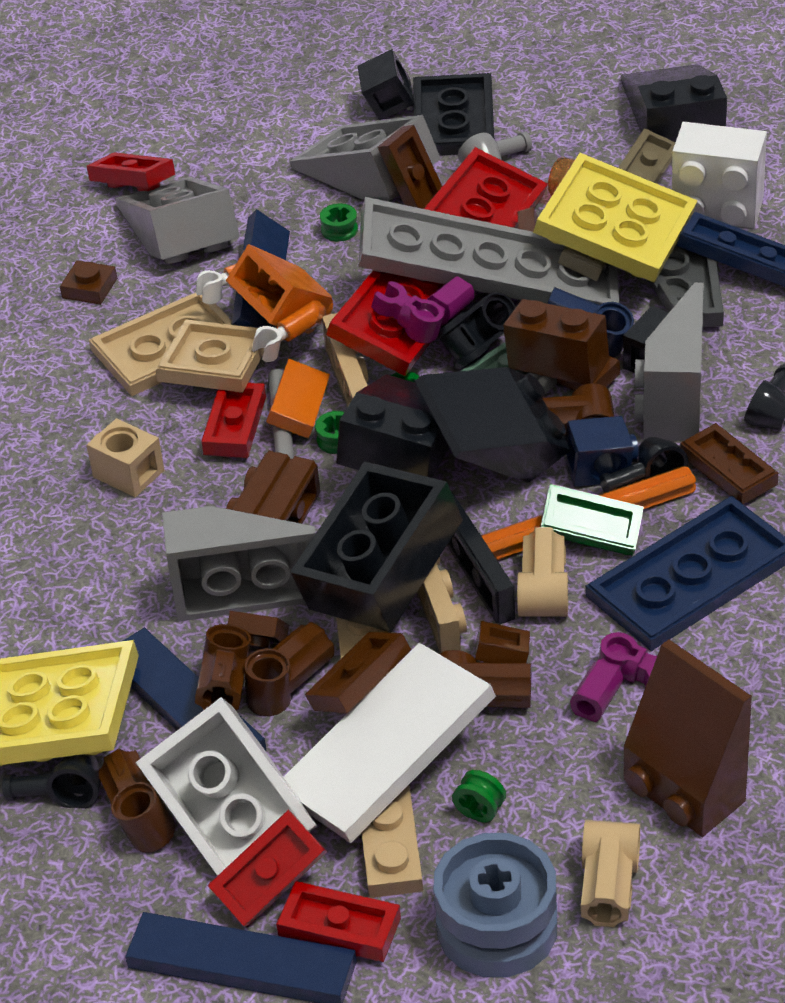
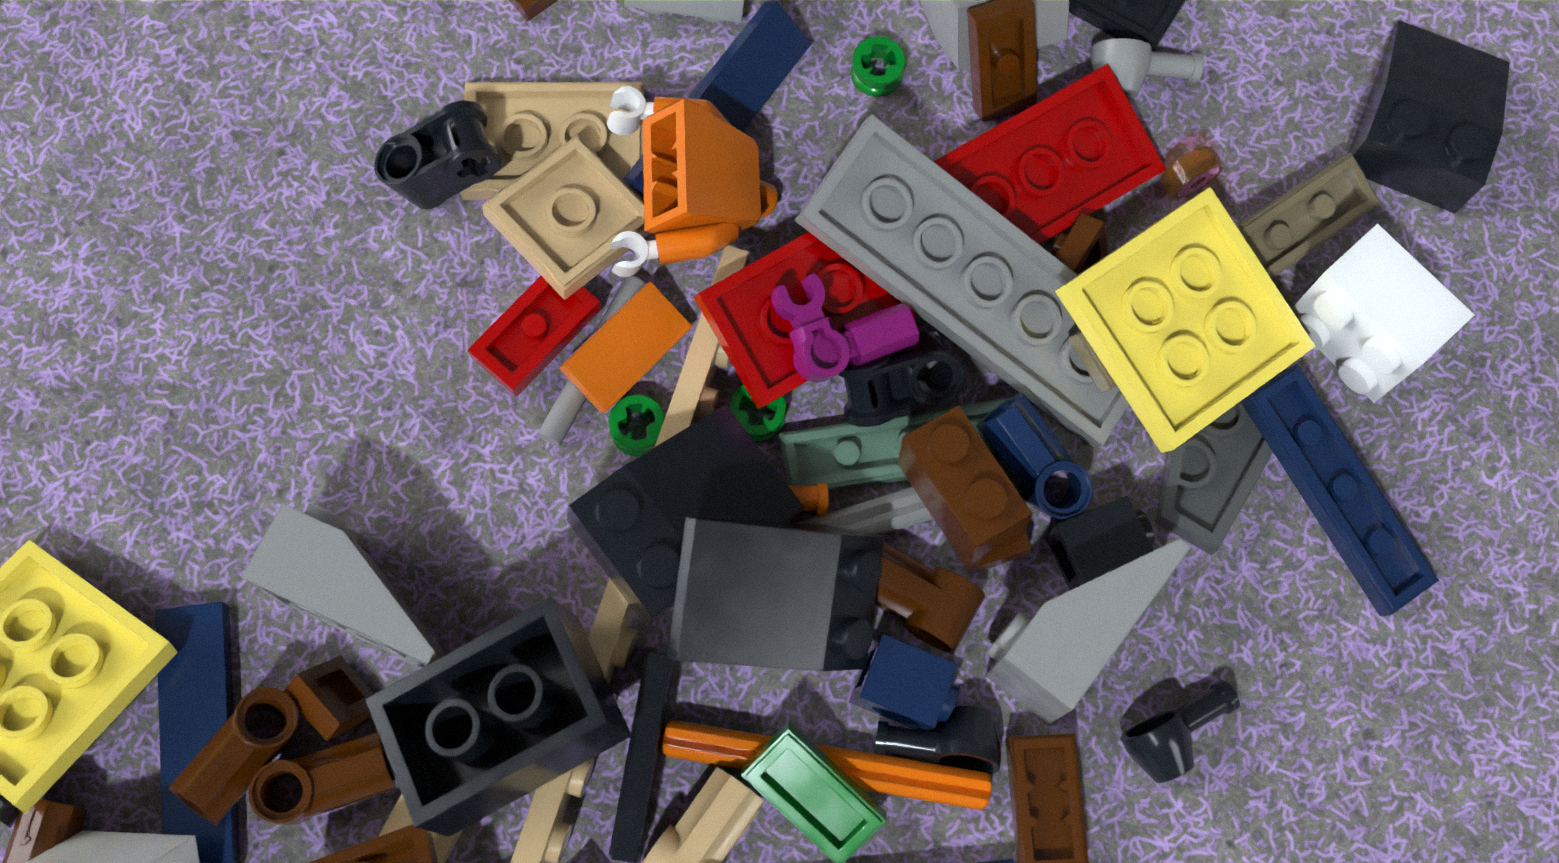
camera: 25 degrees right, 30 degrees up
(106, 367) = (437, 159): none -> black piece
(125, 457) = (382, 335): tan brick -> none
(279, 488) = (481, 504): reddish brown brick -> none

